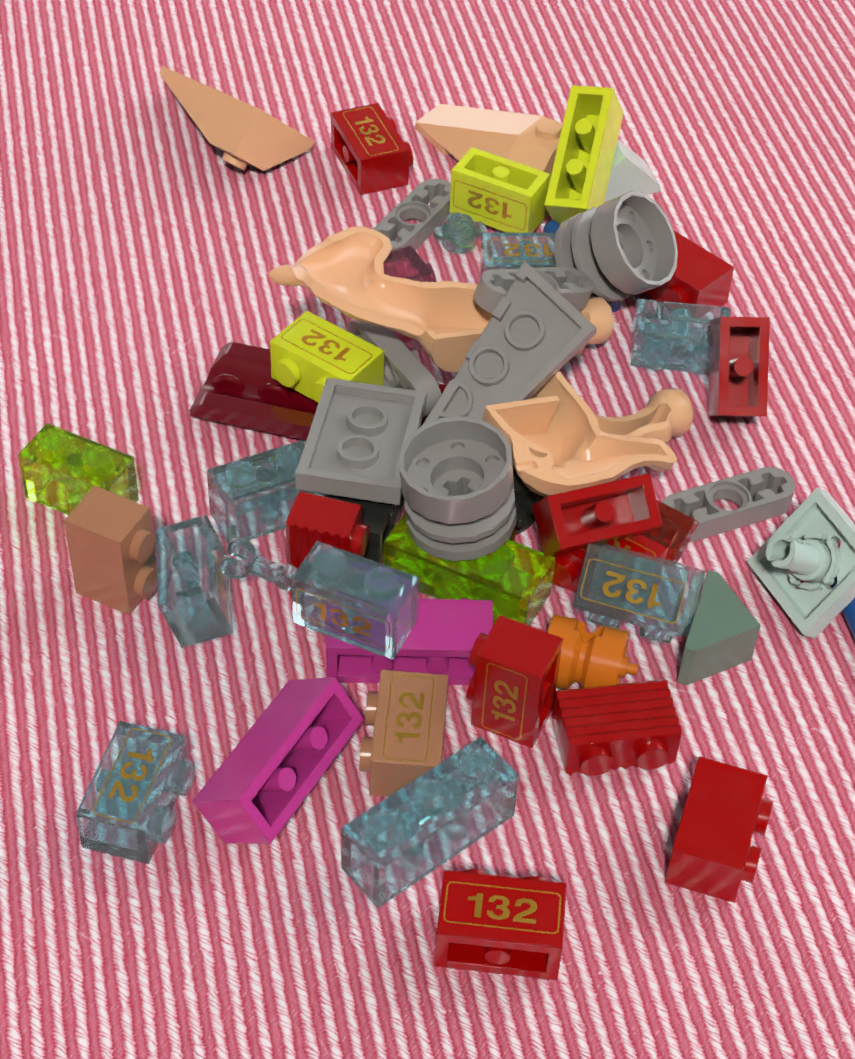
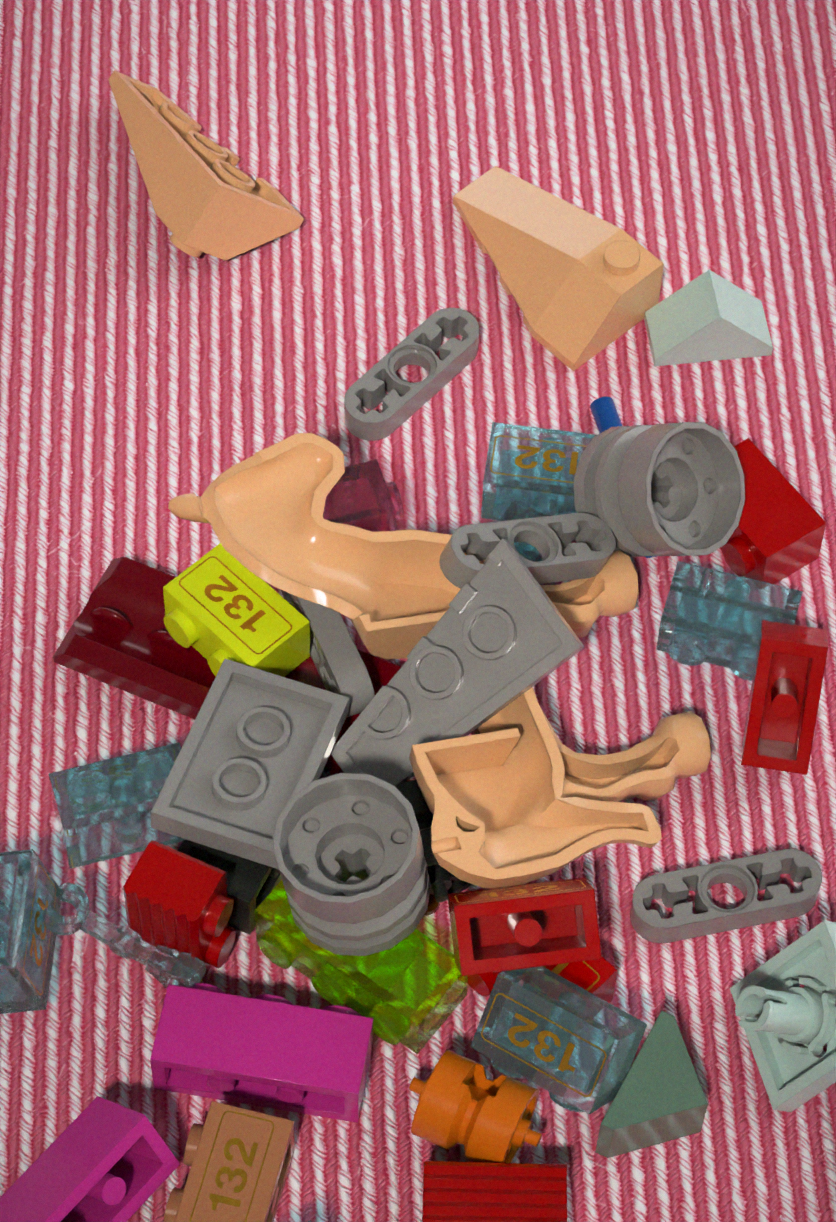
camera: 10 degrees right, 10 degrees up
(355, 599) = (191, 1007): clear light blue brick -> none
(370, 148) = (378, 243): red brick -> none
(459, 233) = (471, 414): clear light blue plate -> none
(499, 192) = (534, 350): neon yellow brick -> none
(514, 680) = (373, 1140): red brick -> none
(584, 152) = (659, 315): neon yellow brick -> none
(674, 533) = (630, 931): clear red tile -> none

